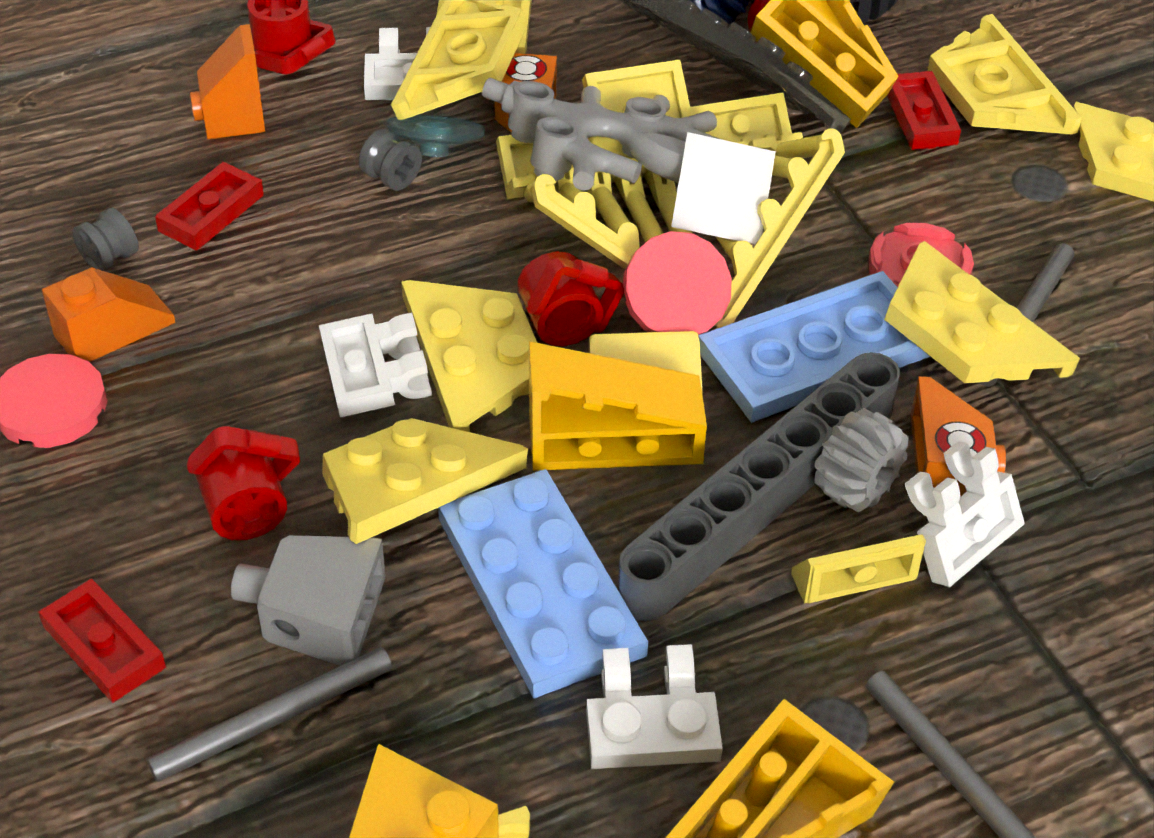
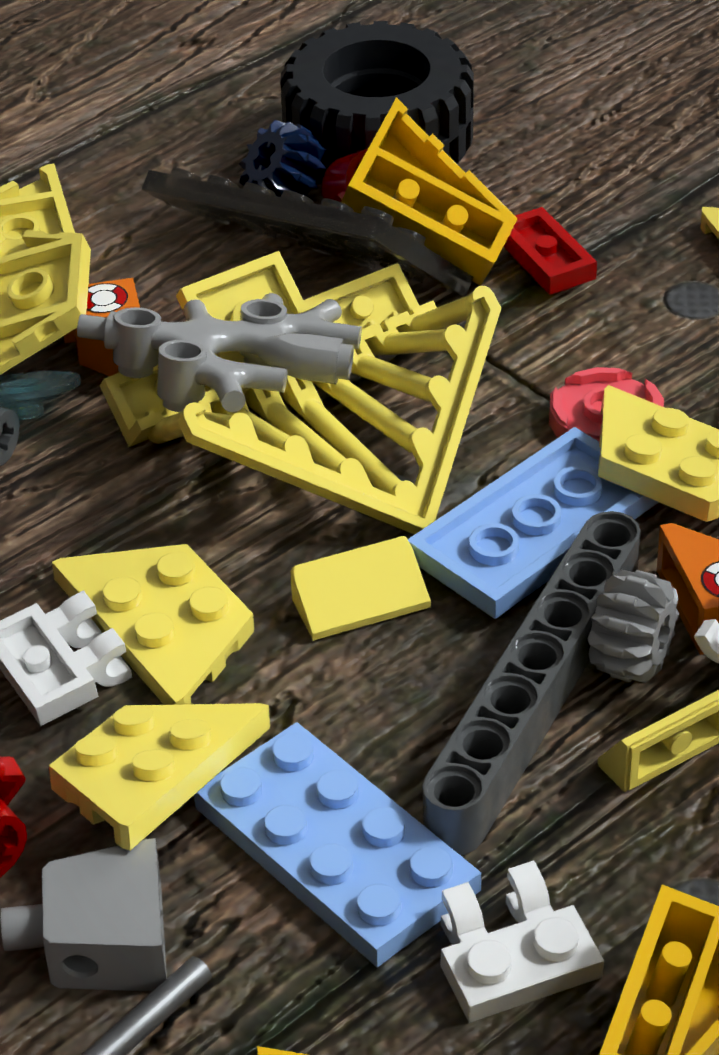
camera: 15 degrees left, 5 degrees down
(562, 297) = (245, 537): red piece -> none
(611, 412) = (346, 644): yellow wedge -> none
(677, 284) = (367, 490): coral tile -> none
(722, 188) = (380, 376): white sticker -> none
(1000, 84) = (616, 205): light yellow wing -> none

